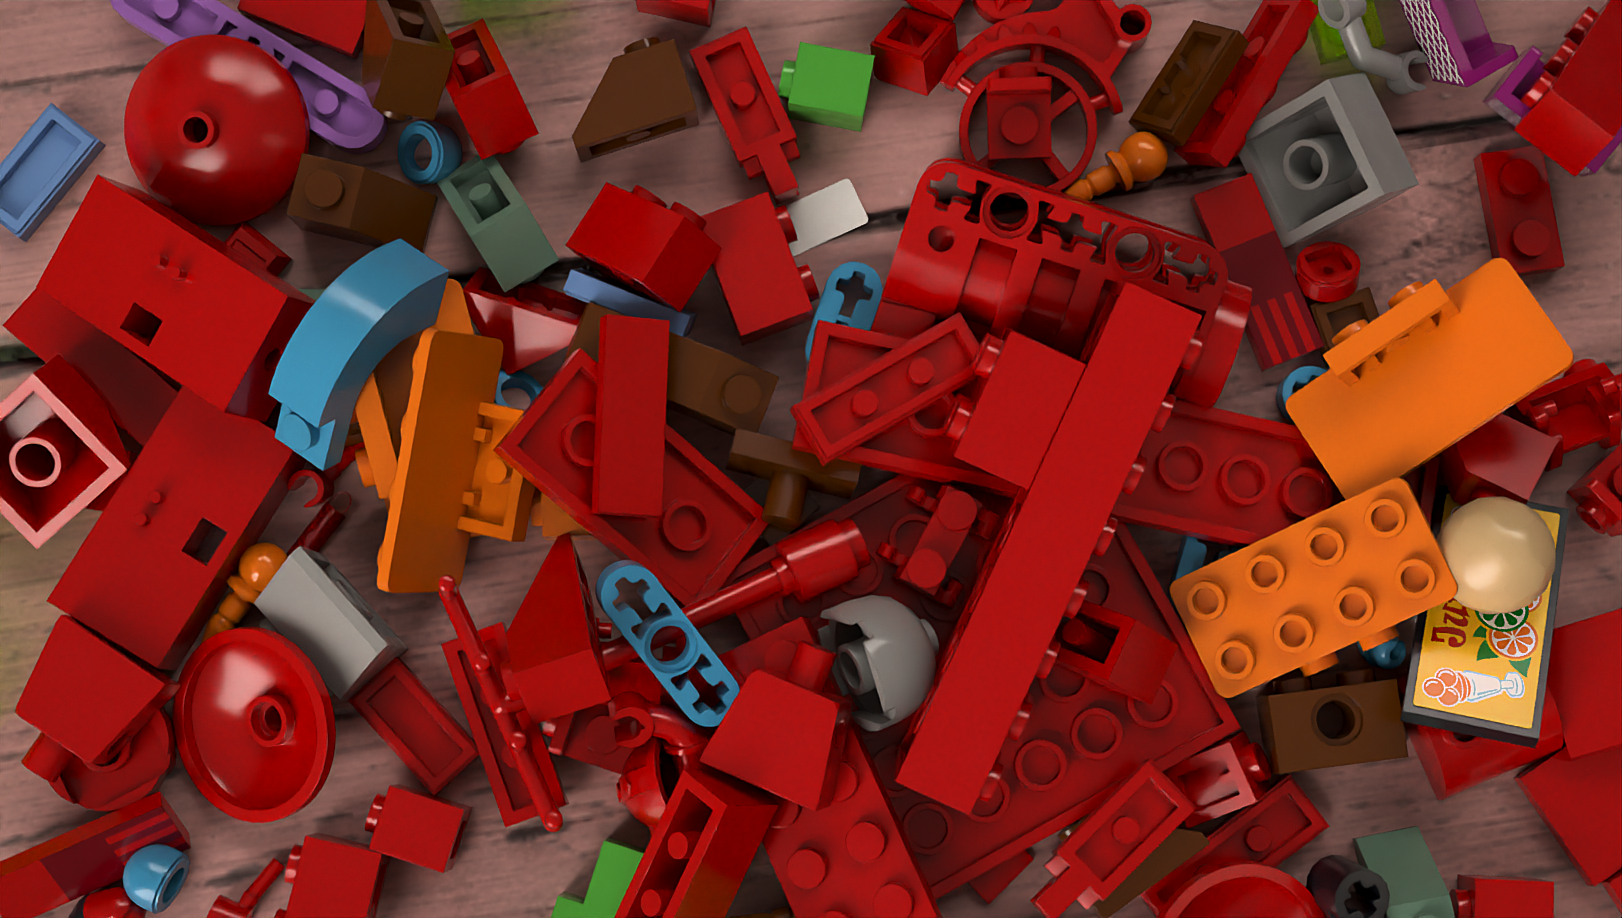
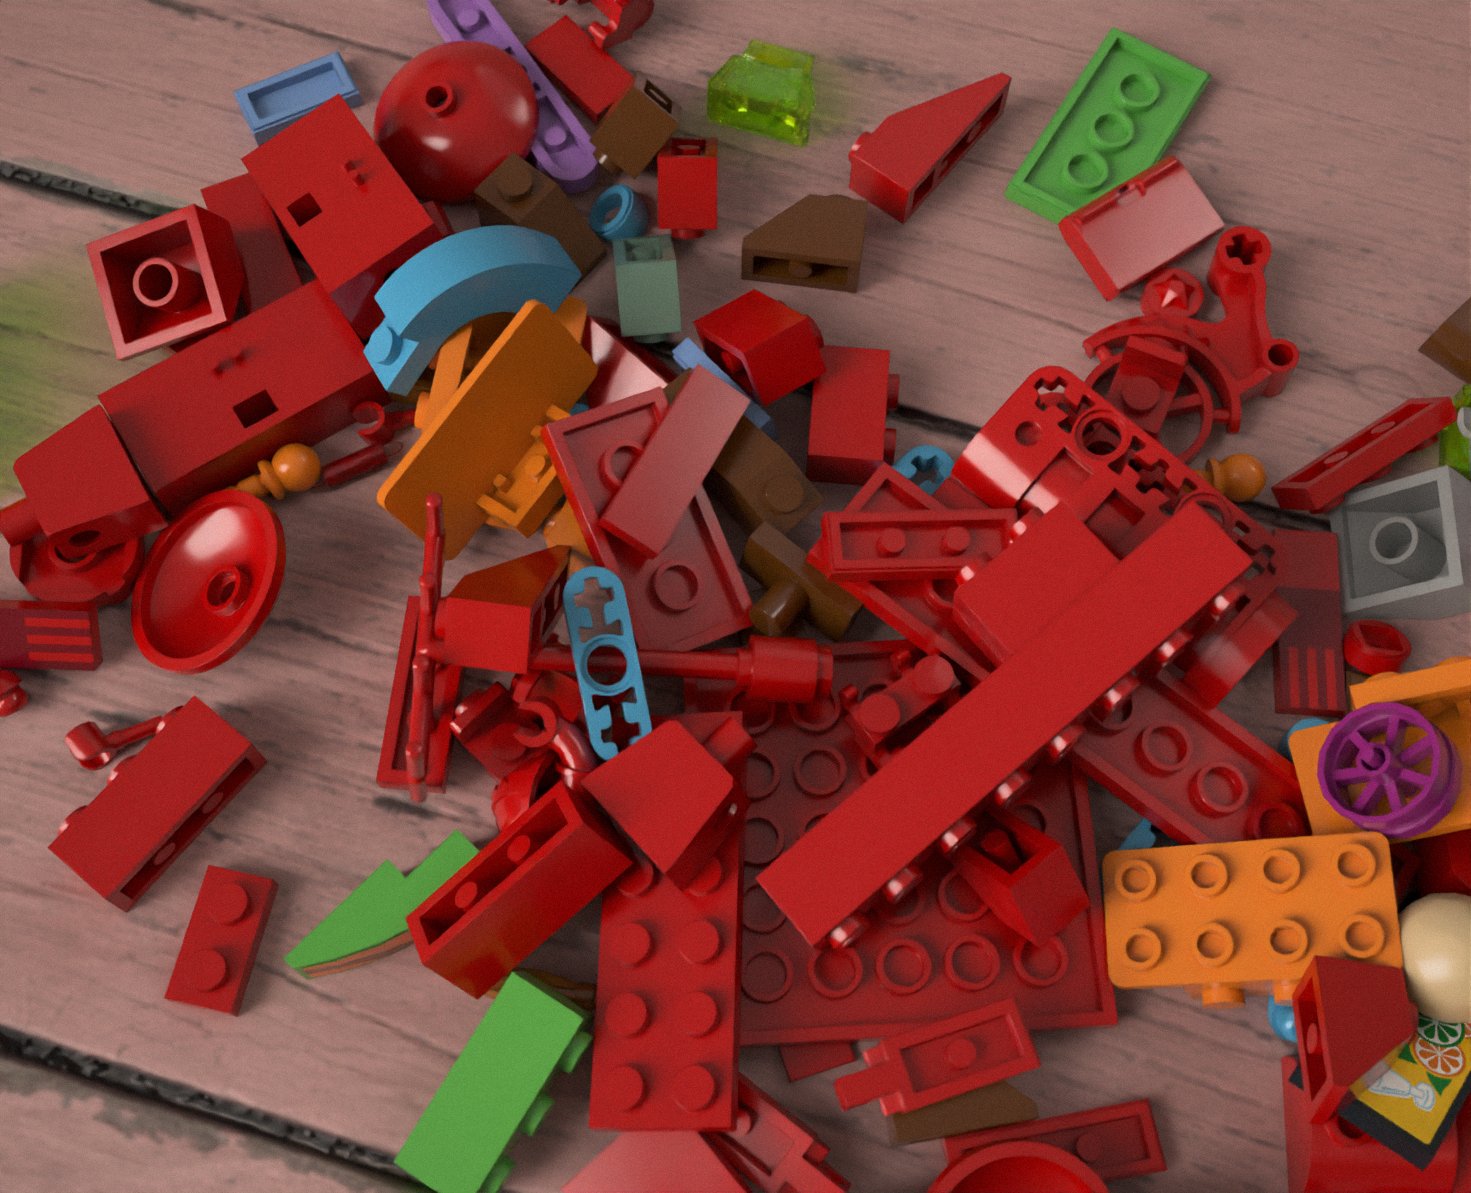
camera: 30 degrees right, 15 degrees down
(155, 876) = (50, 678): dark azure piece -> none
(328, 622) = (323, 531): light grey slope -> none
(415, 726) = (348, 661): red tile -> none
(417, 827) = (300, 744): red brick -> none
(749, 110) = (905, 294): red hinge -> none
(825, 215) = (929, 409): white sticker -> none
(827, 86) = (983, 301): bright green brick -> none
(881, 658) = (796, 776): light grey cylinder -> none
(914, 50) = (1071, 308): red slope -> none
(1189, 82) = (1311, 432): reddish brown plate -> none
(1222, 778) = (1078, 1066): red bracket -> none
(1368, 731) = (1255, 1074): reddish brown brick -> none
(1384, 419) = (1389, 770): none -> magenta wheel
(1434, 663) = (1348, 1030): none -> red slope

